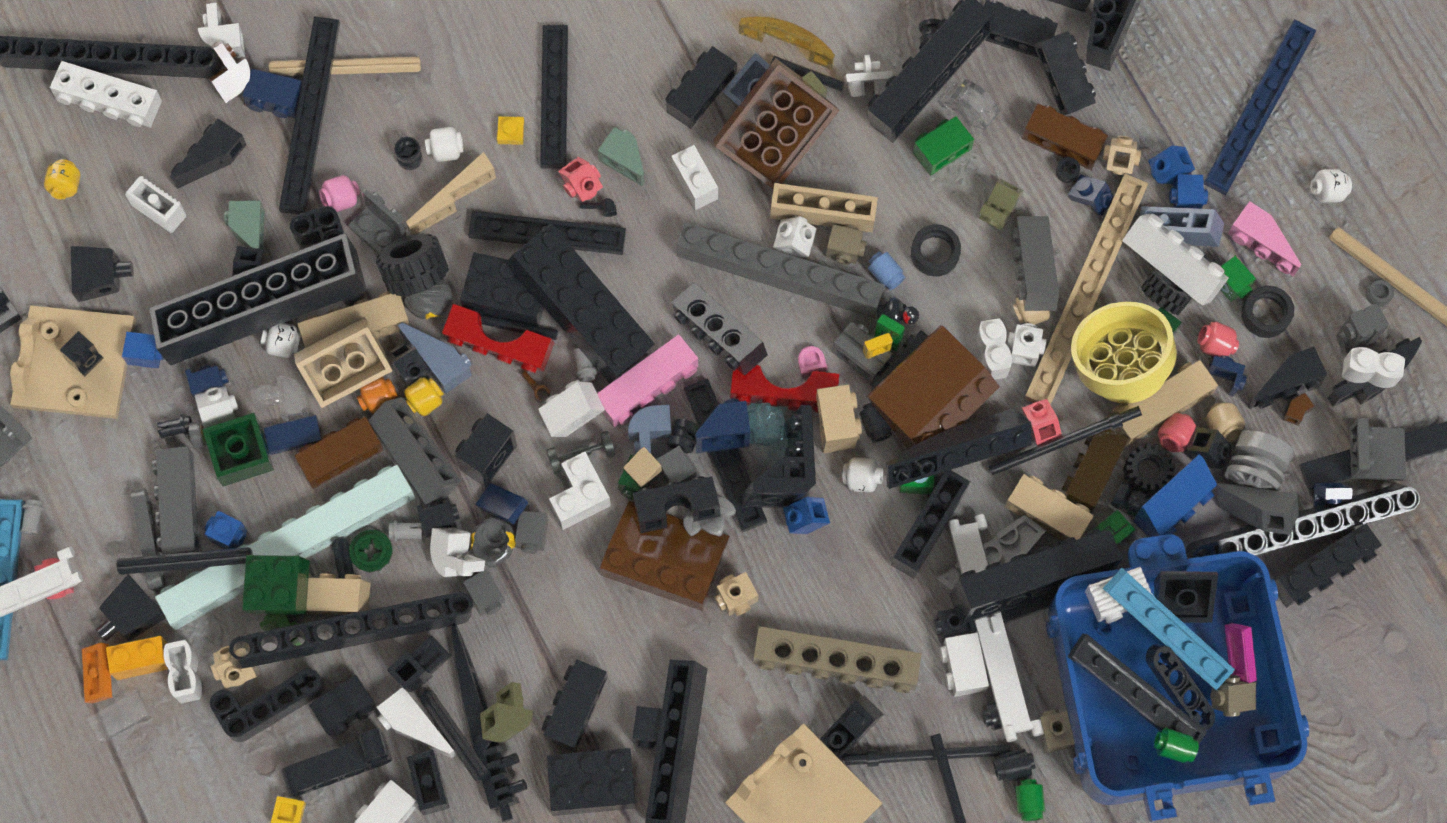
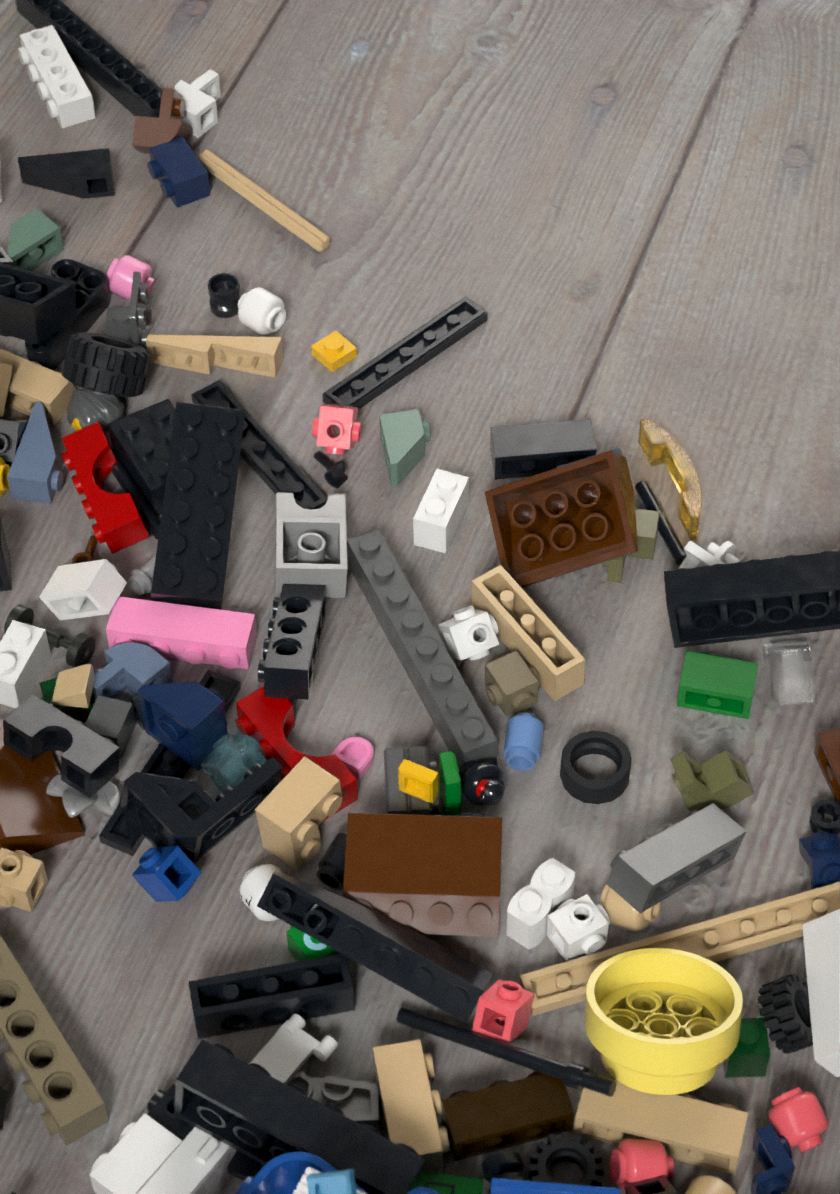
camera: 50 degrees right, 20 degrees down
(309, 115) = (187, 206): black tile -> none
(653, 264) = (311, 544): none -> light grey brick

